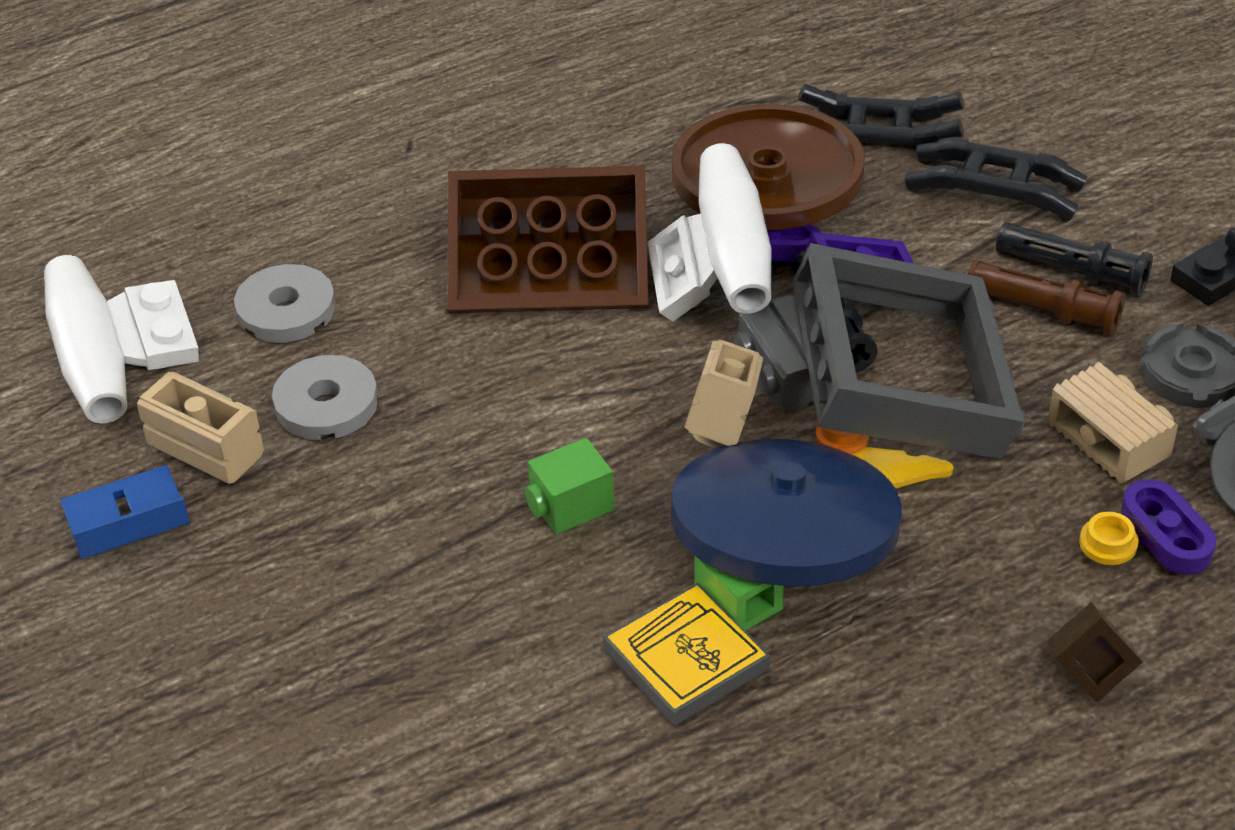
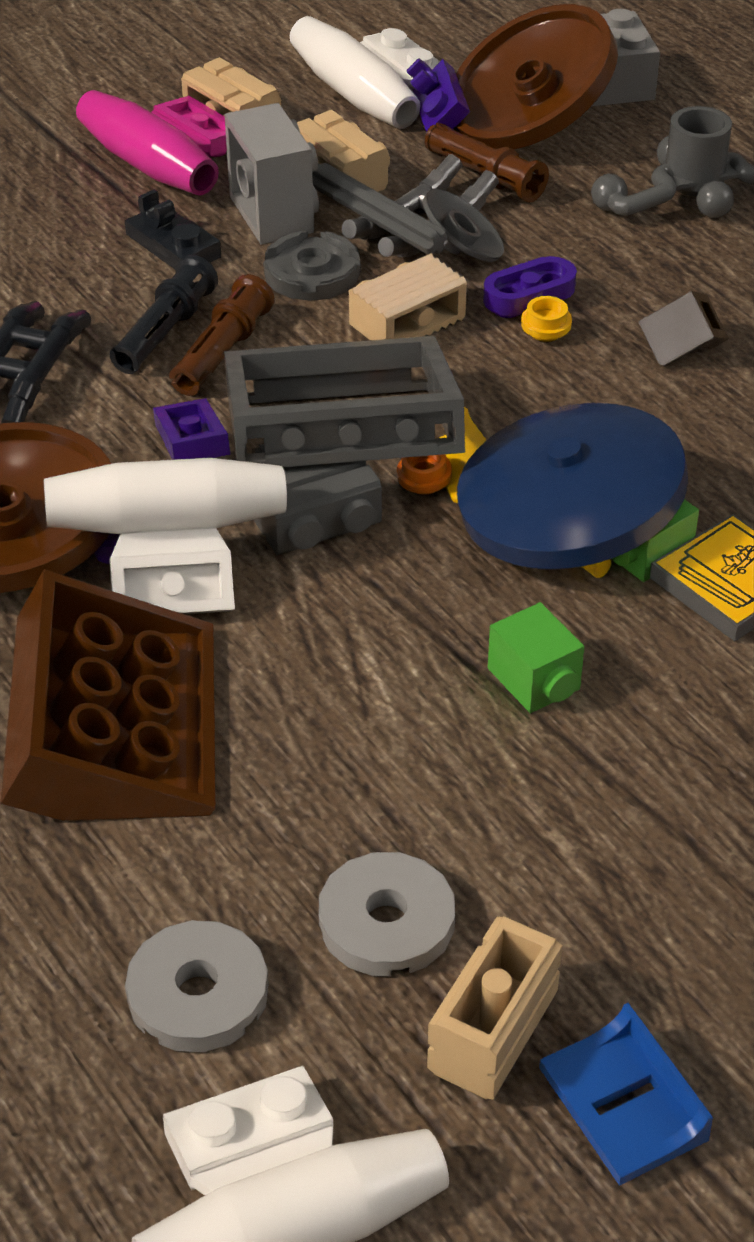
camera: 95 degrees left, 0 degrees up
(724, 394) = (412, 523): tan brick -> none

